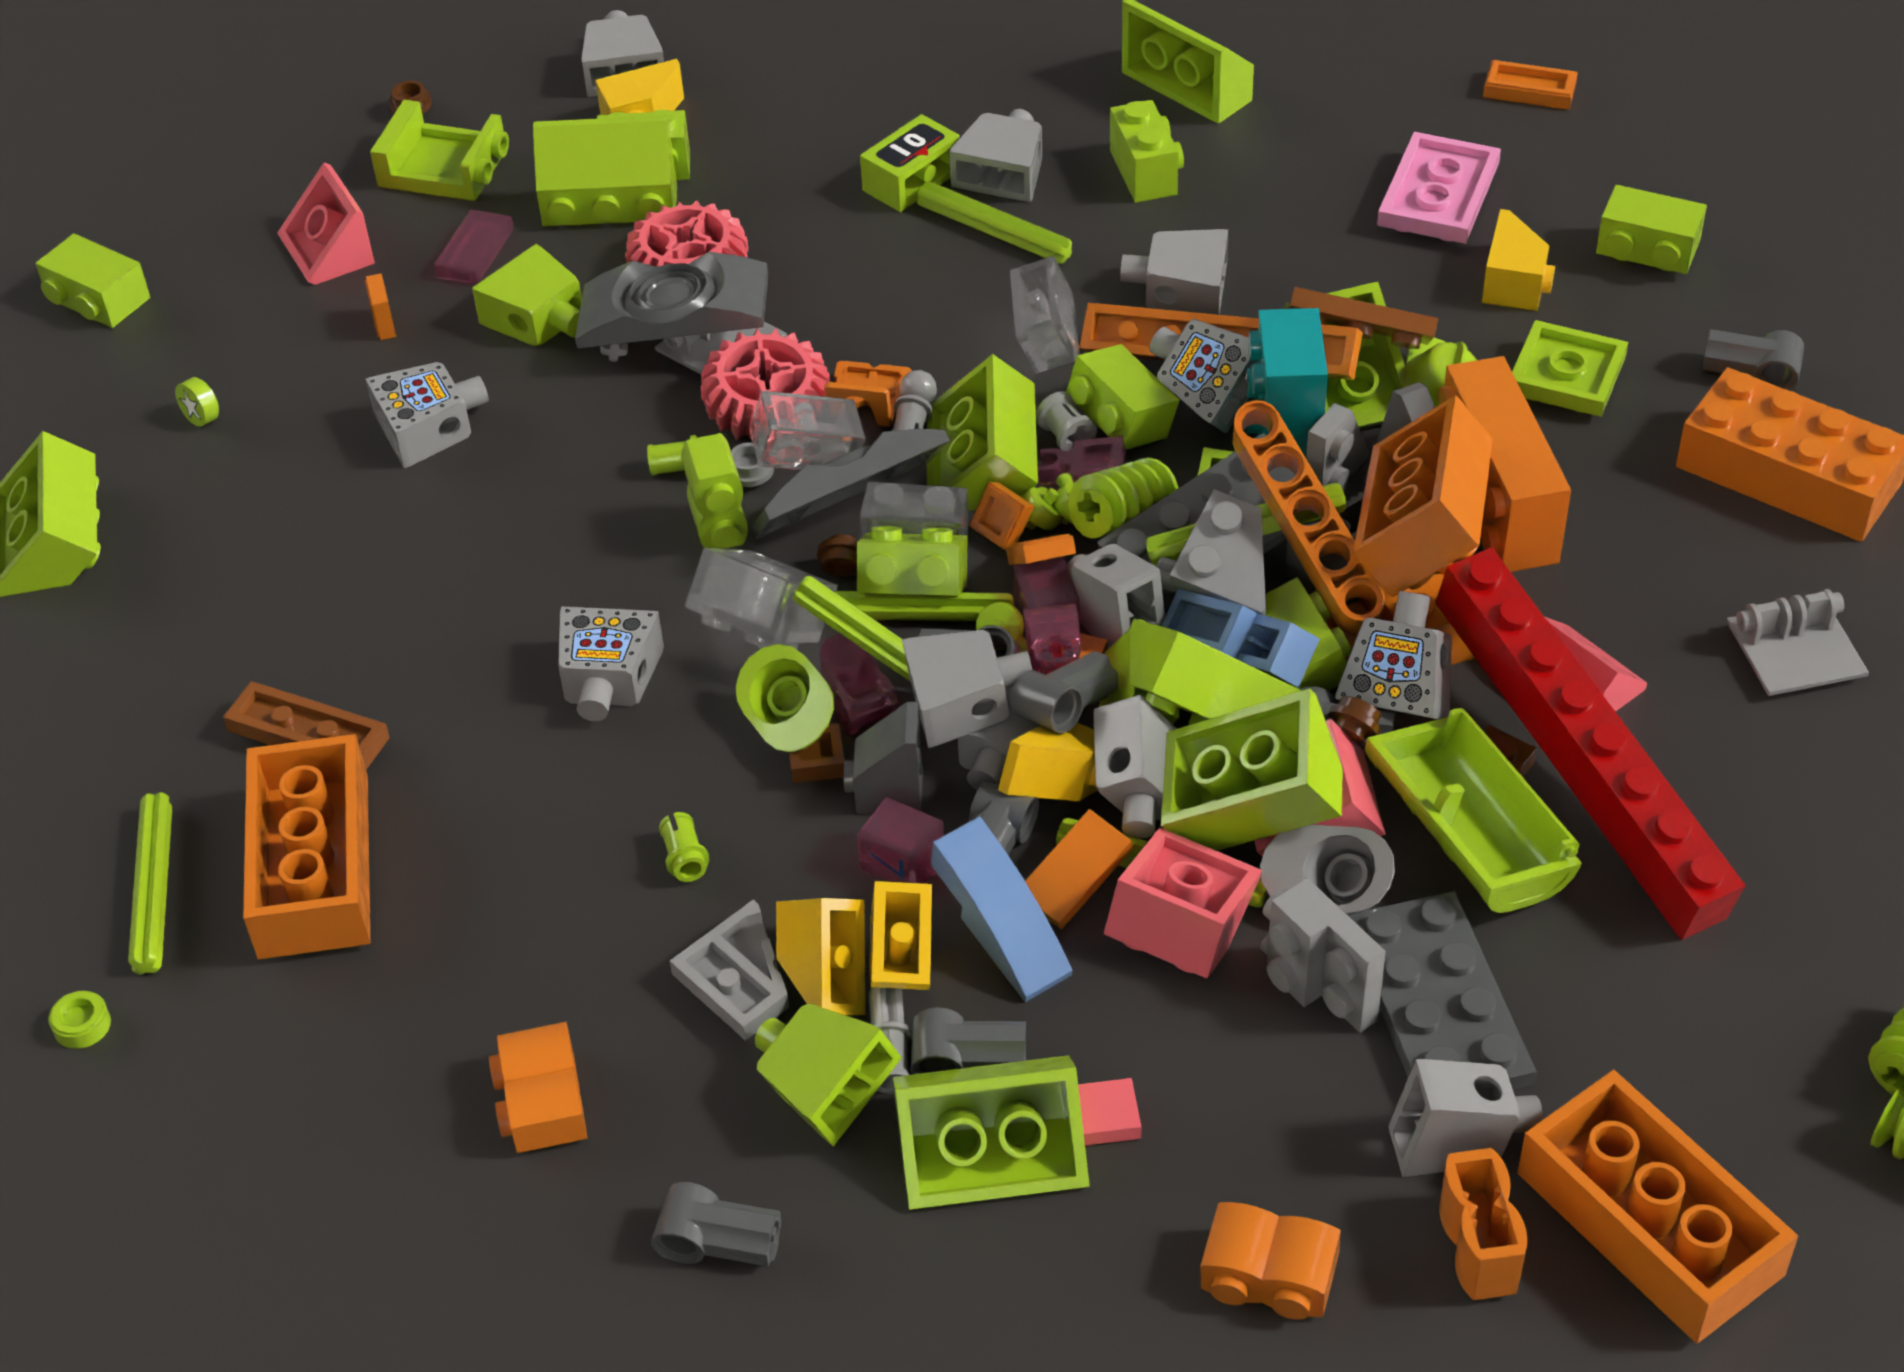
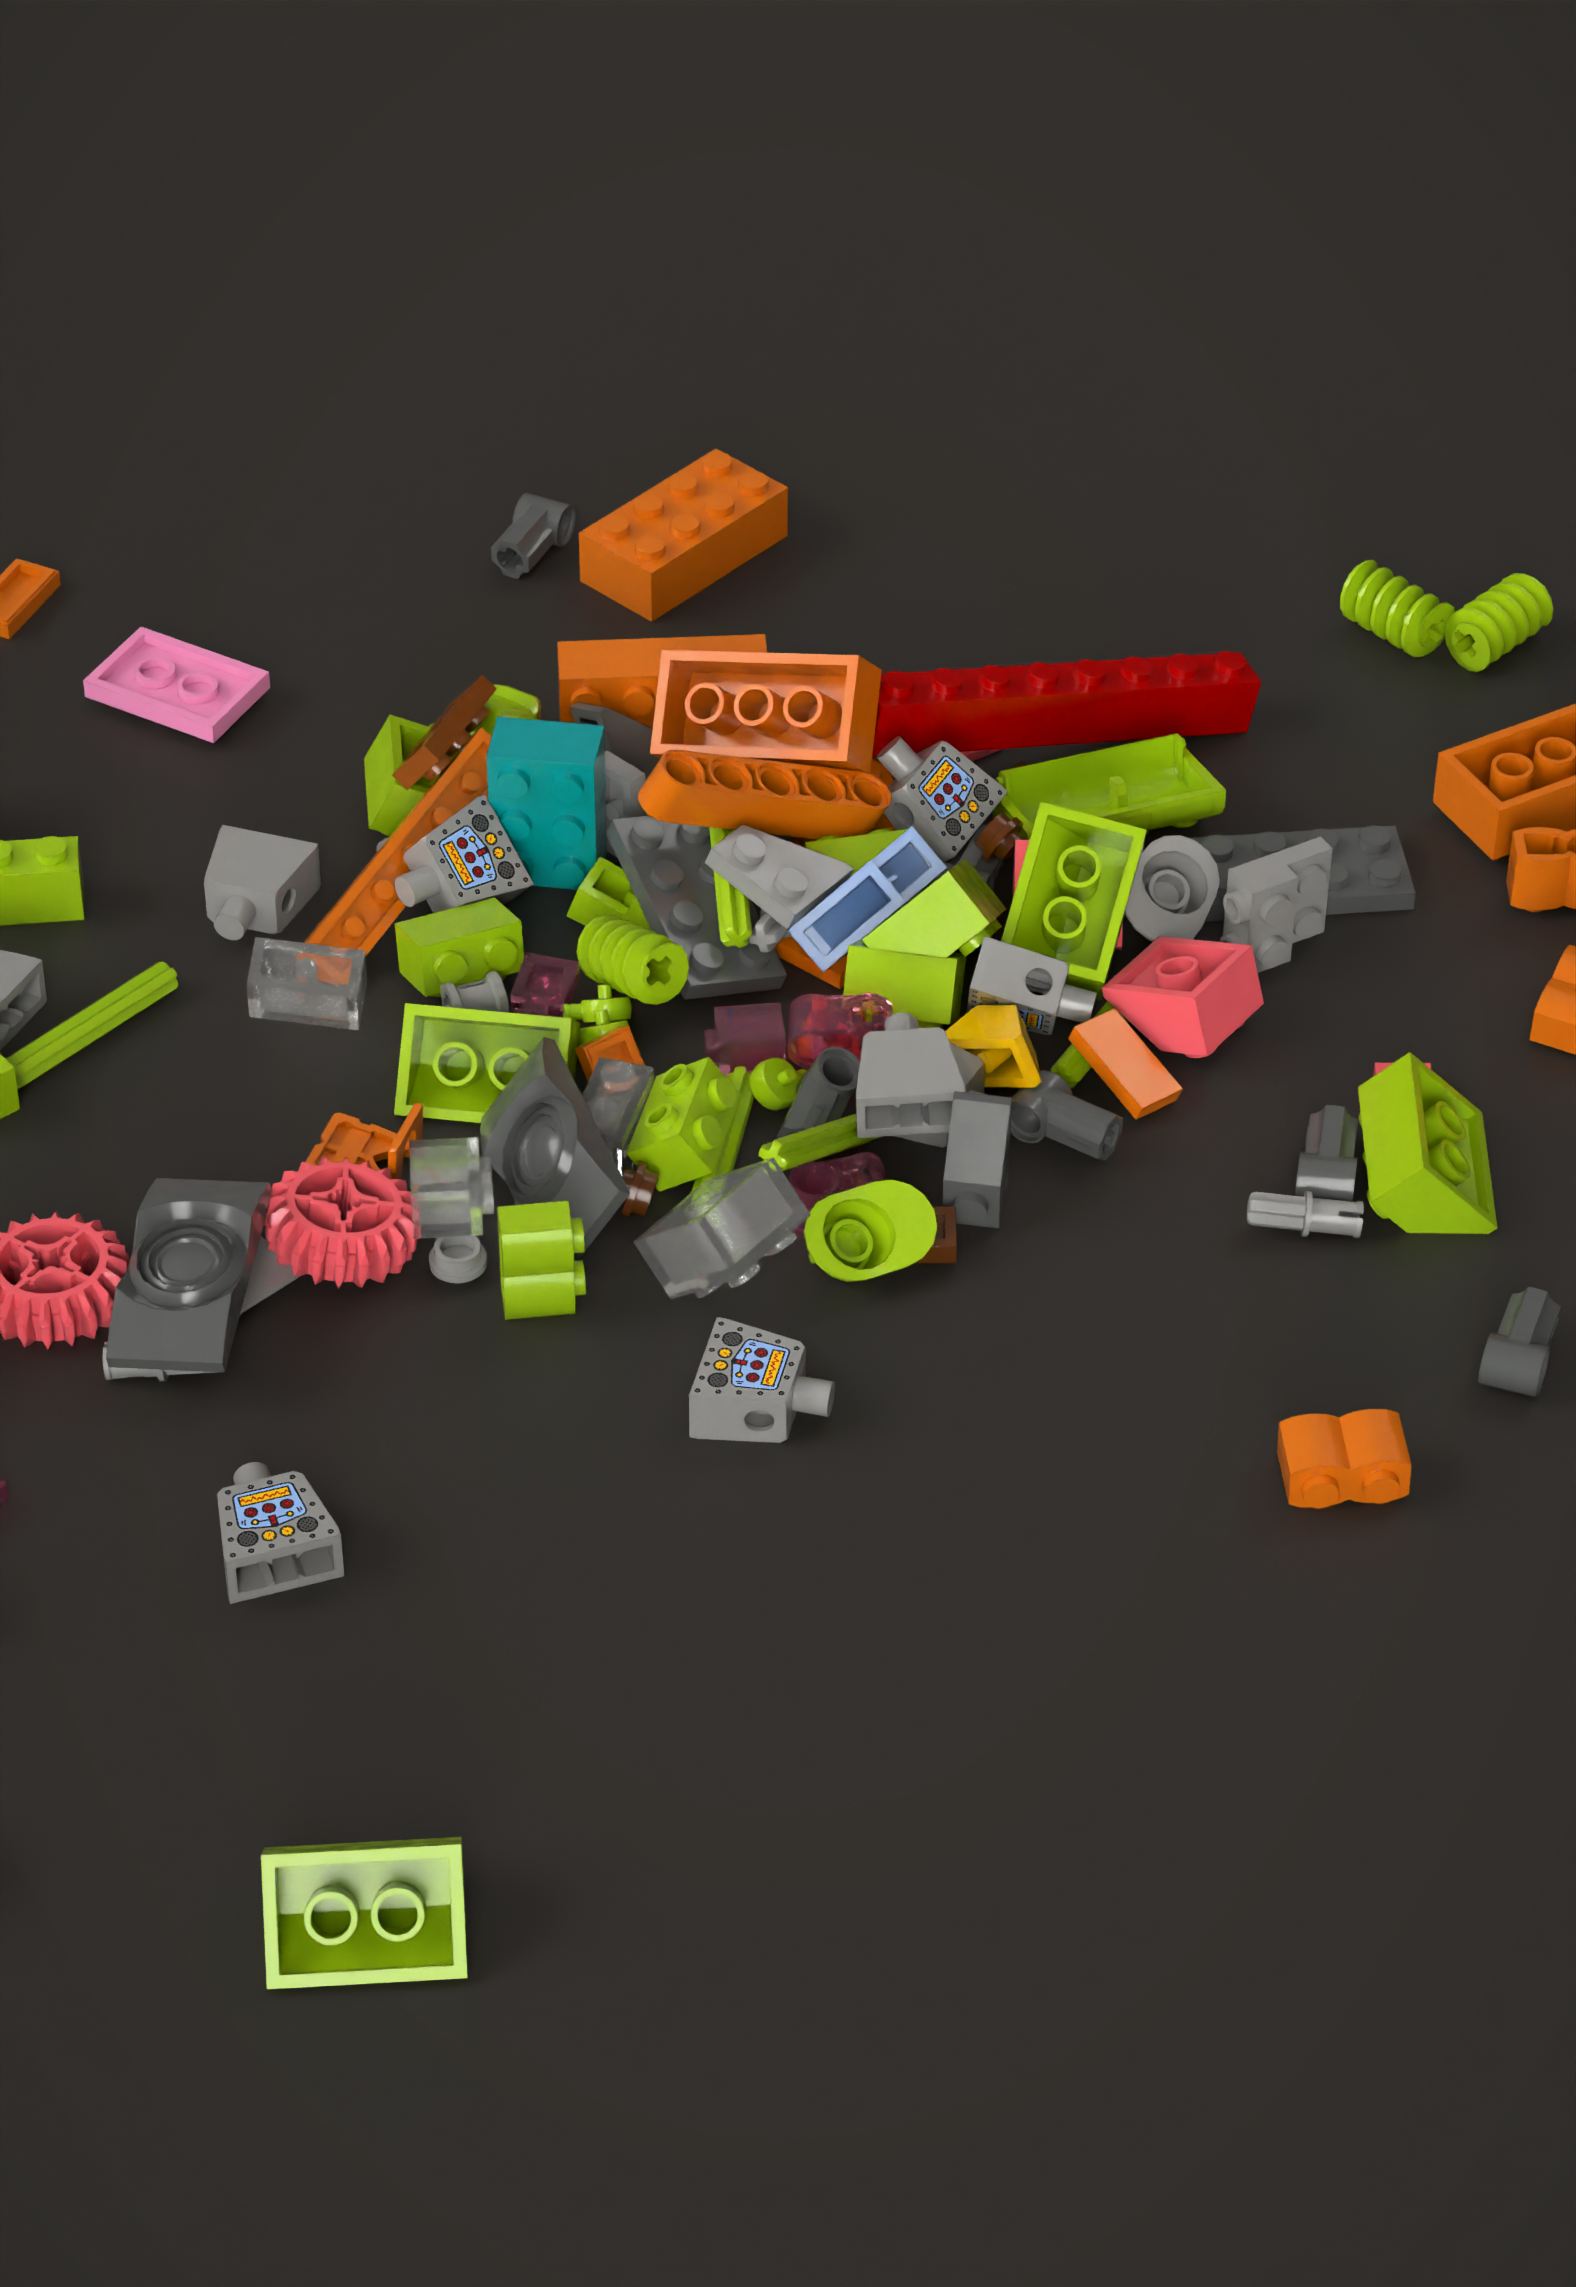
camera: 85 degrees left, 5 degrees down
(79, 1019) = (1192, 1850): lime tile -> none
(150, 884) = (1003, 1789): lime axle -> none
(197, 401) = (175, 1758): lime tile -> none
(285, 718) = (796, 1647): dark orange plate -> none
(306, 847) = (1003, 1624): orange brick -> none
(379, 306) = (49, 1570): orange tile -> none
(530, 298) = (90, 1422): lime torso -> none
(666, 457) = (426, 1302): lime pin -> none
(685, 857) = (1038, 1343): lime pin -> none
(735, 972) = (1213, 1314): light grey wing -> none
(824, 951) = (1206, 1234): yellow slope -> none
(825, 1066) = (1357, 1246): lime torso -> none
(899, 843) = (1071, 1179): clear pink brick -> none
(900, 935) = (1214, 1177): yellow slope -> none
(913, 405) = (384, 1105): light grey pin -> none
(1000, 908) = (1172, 1110): medium blue slope -> none
(1040, 549) = (692, 1025): orange tile -> none
(1061, 695) = (953, 1009): dark grey piece -> none
(1116, 590) = (776, 968): light grey torso -> none
(1456, 1110) = (1457, 853): light grey torso -> none
(1516, 266) = (330, 652): yellow slope -> none
(1569, 367) = (502, 647): lime plate -> none
(1651, 229) = (324, 551): lime brick -> none
(1797, 642) = (920, 591): light grey hinge -> none

